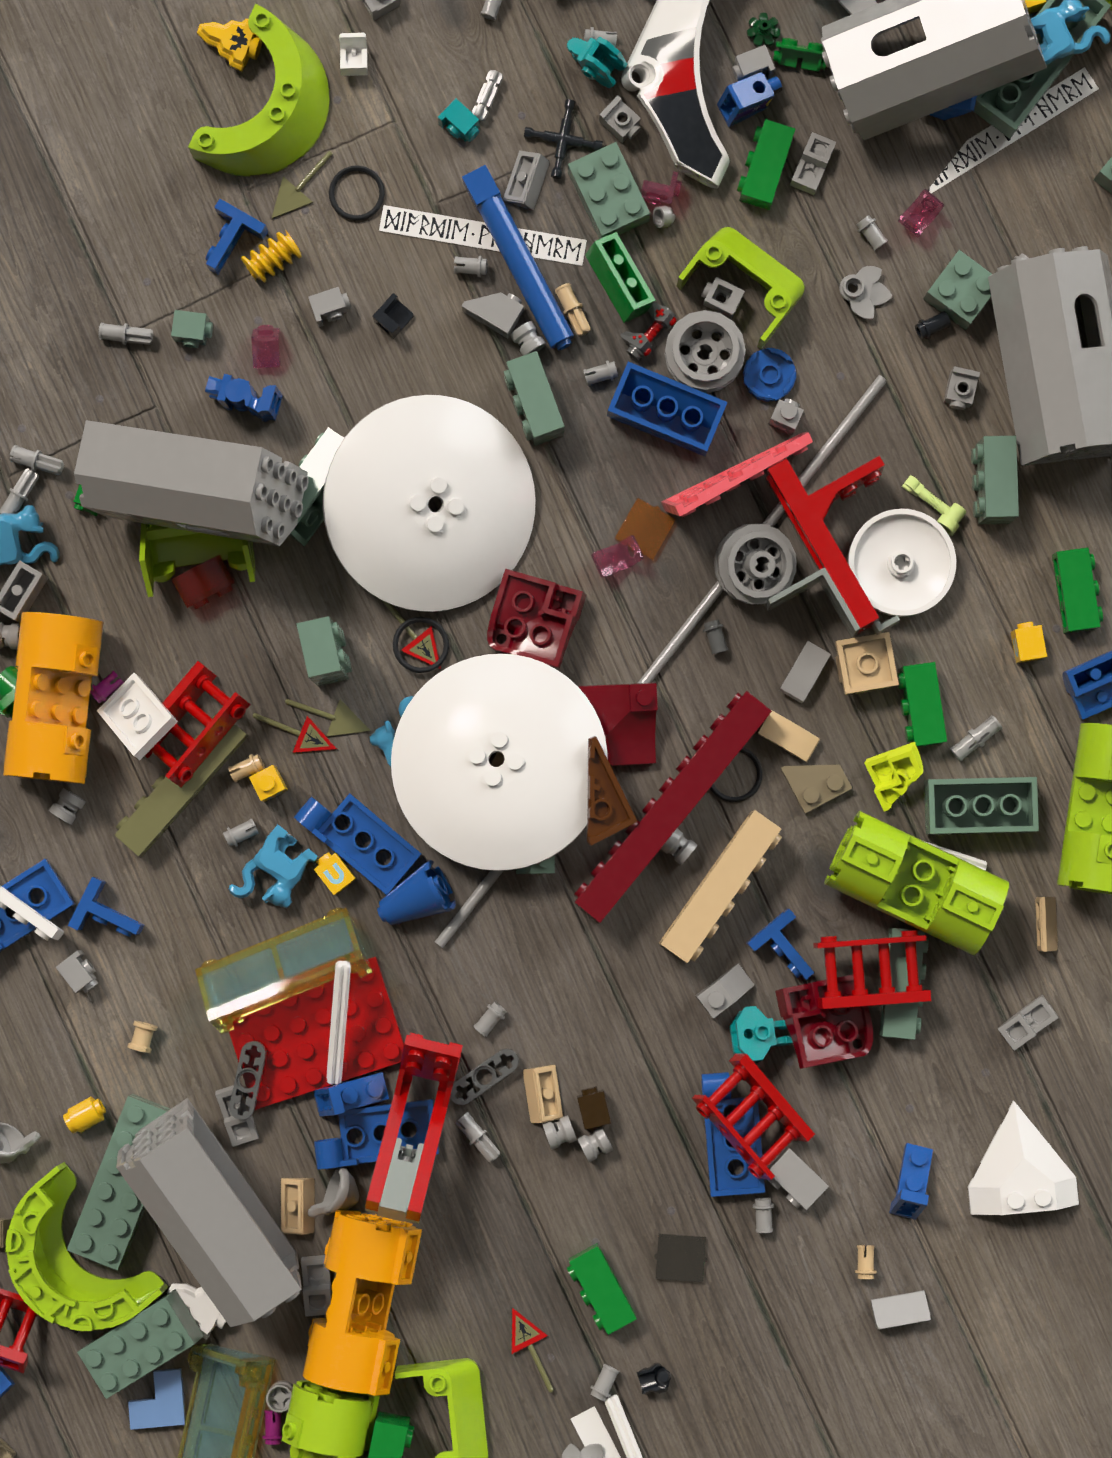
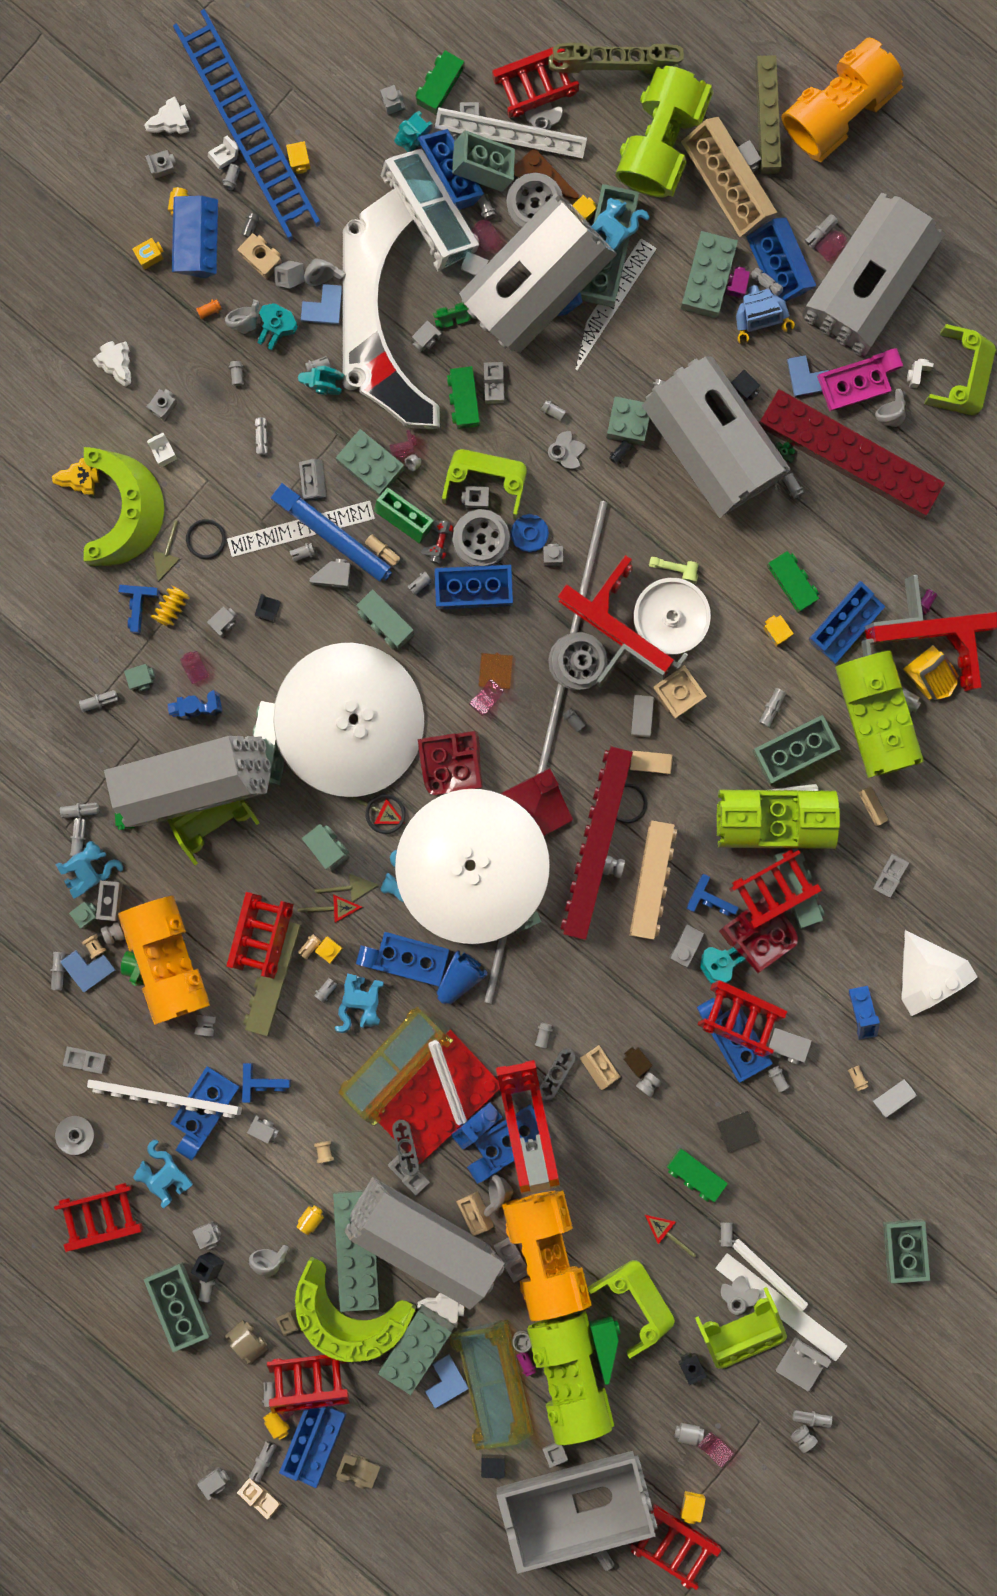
camera: 20 degrees left, 0 degrees up
(104, 688) = (193, 937): magenta pin -> none
(137, 716) = (223, 946): white plate -> none
(204, 581) = (225, 838): clear red brick -> none
(334, 872) = (398, 987): yellow brick -> none
(459, 121) = (251, 461): teal brick -> none
(478, 1137) = (571, 1115): light grey axle -> none
(527, 338) = (362, 583): light grey wheel -> none
(559, 1132) = (622, 1087): light grey wheel -> none
(563, 138) = (324, 441): black piece -> none
(606, 803) = (554, 860): reddish brown wing -> none
(620, 130) = (359, 419): light grey brick -> none
(654, 1379) = (757, 1217): black arm -> none
(747, 97) = (432, 360): blue torso -> none
(752, 468) = (526, 626): coral wing -> none
(763, 30) = (421, 310): dark green plant -> none
(815, 784) = (683, 785): dark tan wing -> none
(894, 772) = (730, 754): neon yellow slope -> none
(921, 213) = (579, 383): clear pink bracket -> none
(922, 704) = (727, 702): green brick -> none
(963, 377) = (654, 492): light grey brick -> none
(995, 480) = (707, 534): sand green brick -> none

